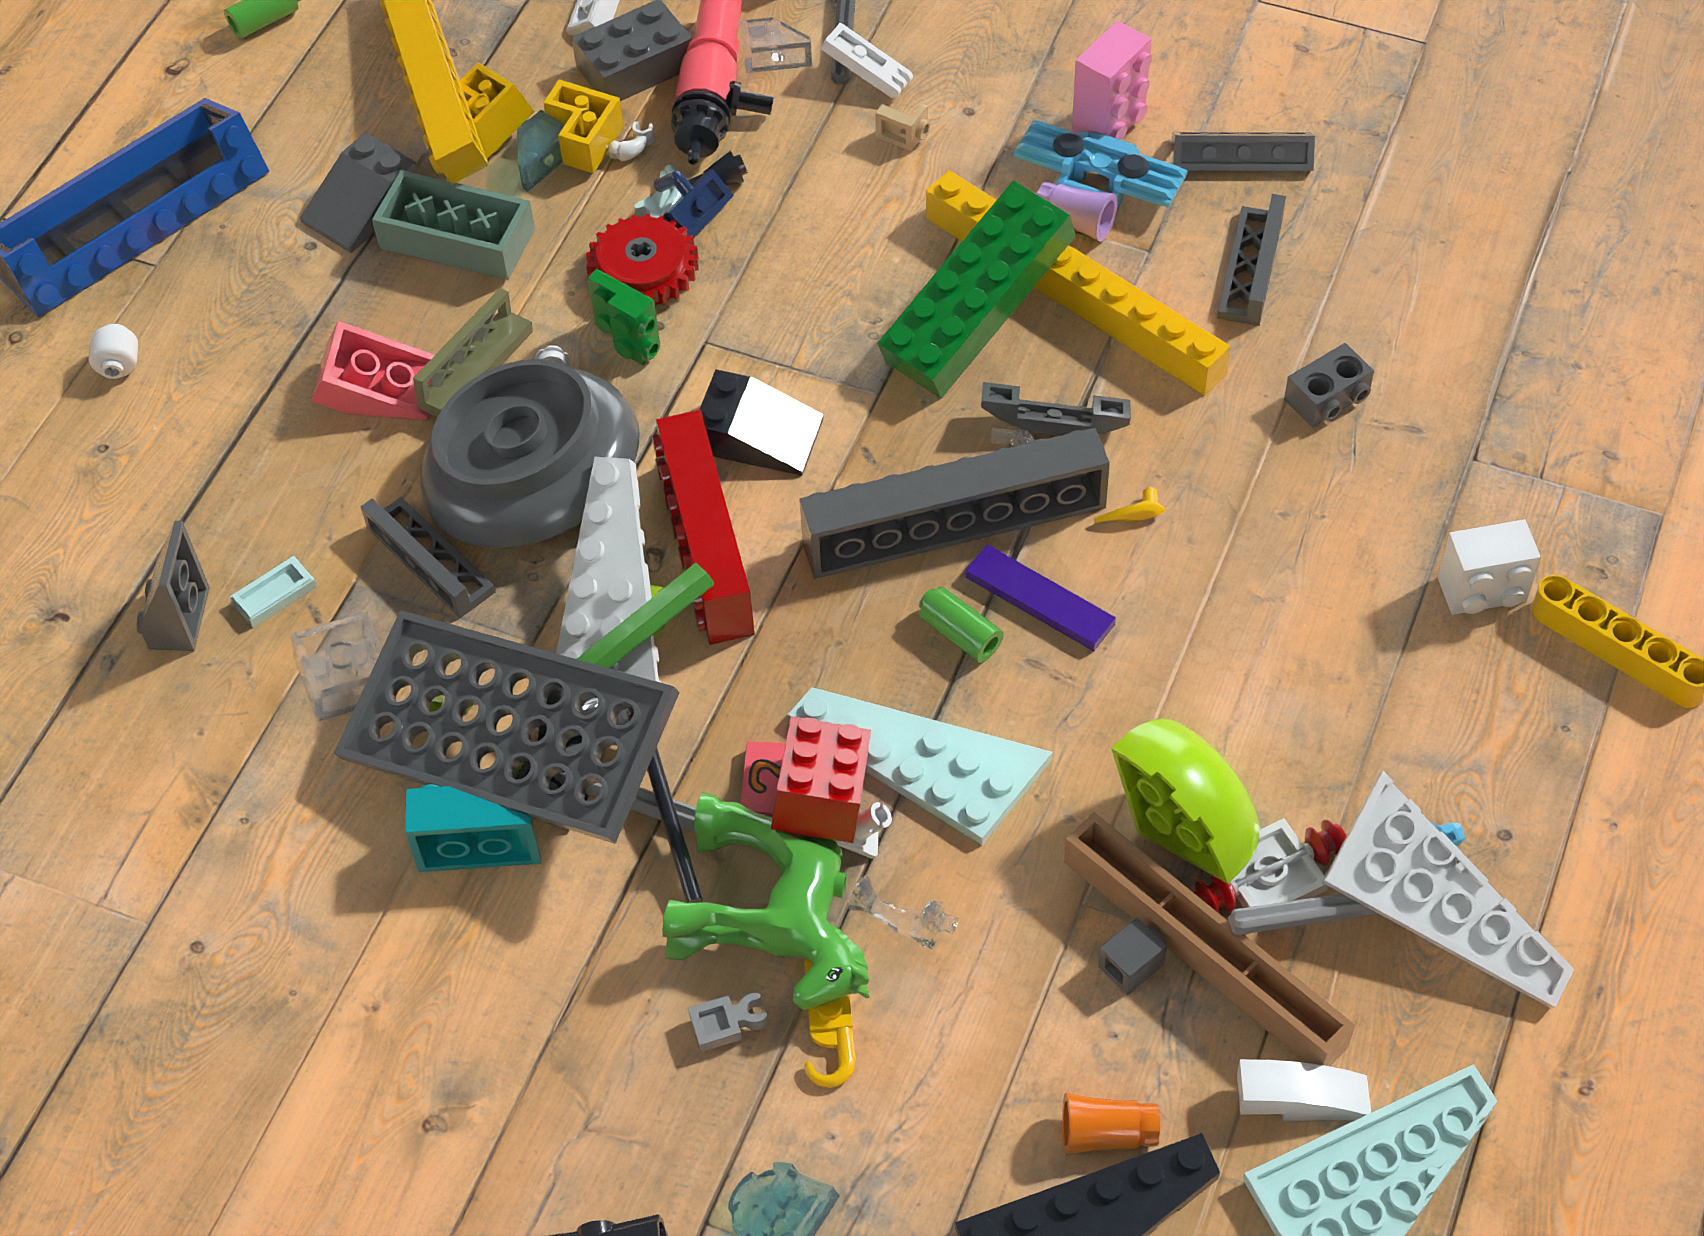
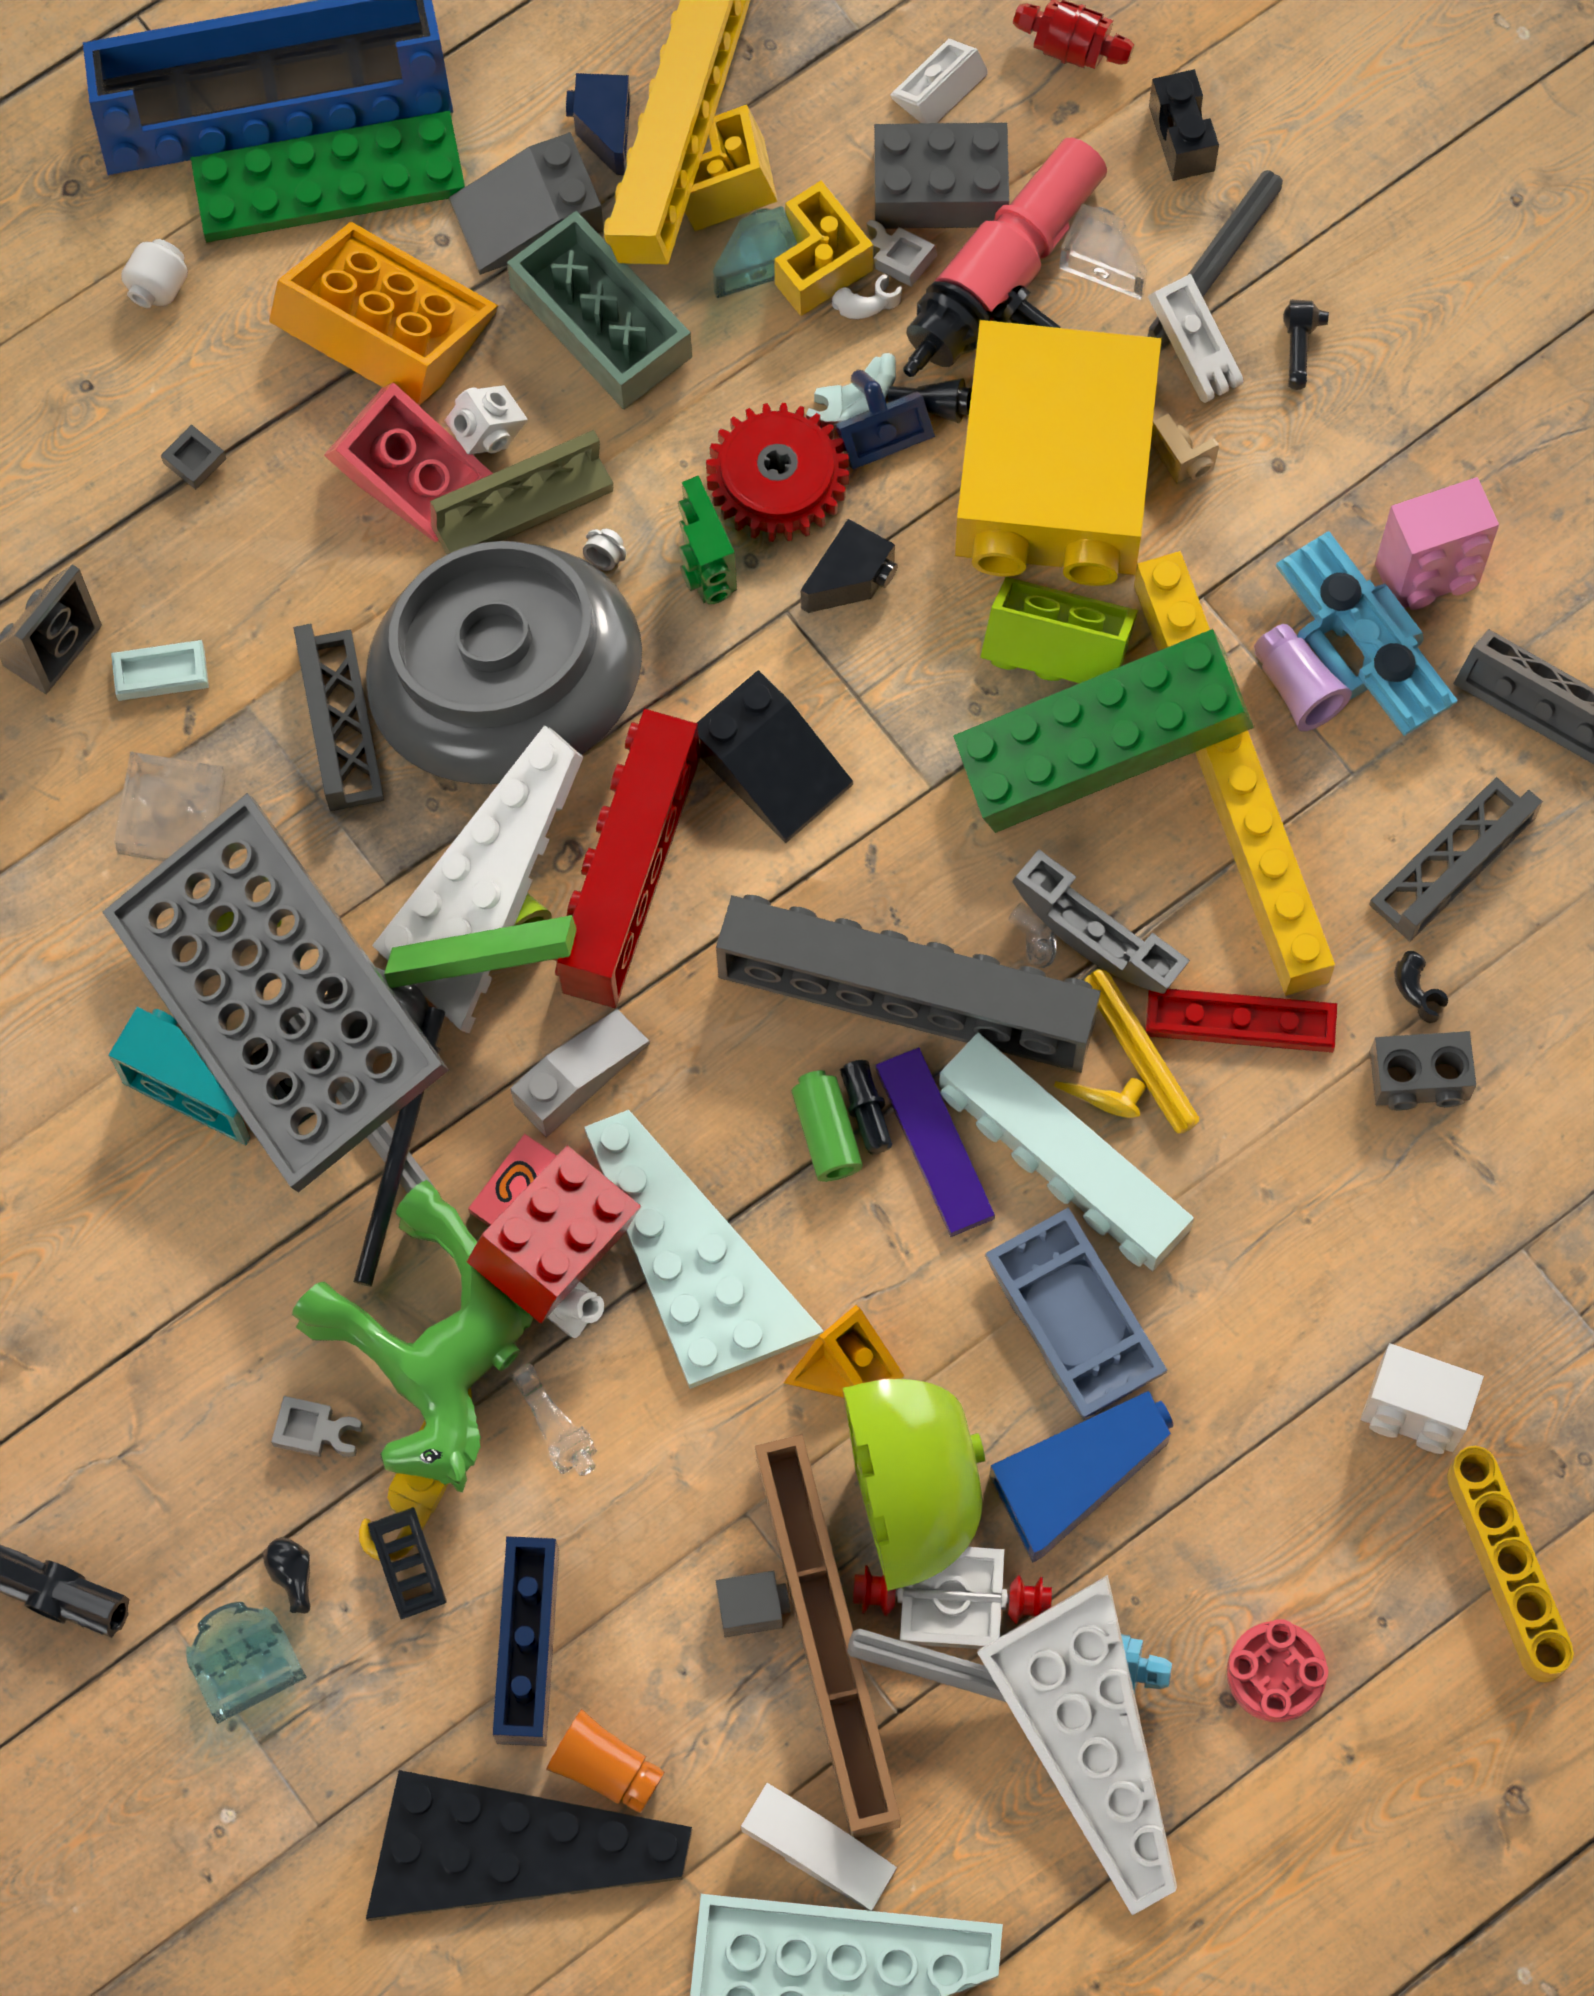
camera: 30 degrees right, 15 degrees up
(202, 245) = (327, 176): none -> green plate
(213, 448) = (193, 456): none -> dark grey plate
(293, 301) = (380, 312): none -> light orange slope
(381, 119) = (602, 116): none -> dark blue slope
(416, 322) = (485, 419): none -> white brick
(641, 106) = (900, 255): none -> light grey plate
(733, 291) = (849, 569): none -> black slope
(756, 686) = (576, 1071): none -> light grey slope
(771, 1128) = (290, 1568): none -> black animal
(825, 156) = (1057, 451): none -> yellow brick
(864, 1093) = (422, 1602): none -> black slope
(896, 263) = (1056, 632): none -> lime slope
(924, 26) = (1301, 319): none -> black piece
(979, 598) = (866, 1106): none -> black axle
(991, 1071) = (526, 1641): none -> dark blue brick
(1082, 761) = (845, 1357): none -> light orange slope
(1135, 553) = (1064, 1152): none -> light aqua brick
(1156, 478) = (1143, 1053): none -> yellow axle
(1187, 421) = (1242, 1020): none -> red tile
(1217, 647) = (1075, 1313): none -> sand blue slope
(1277, 343) = (1408, 982): none -> black arm
(1291, 746) = (1075, 1471): none -> blue slope
(1524, 795) = (1277, 1671): none -> coral tile

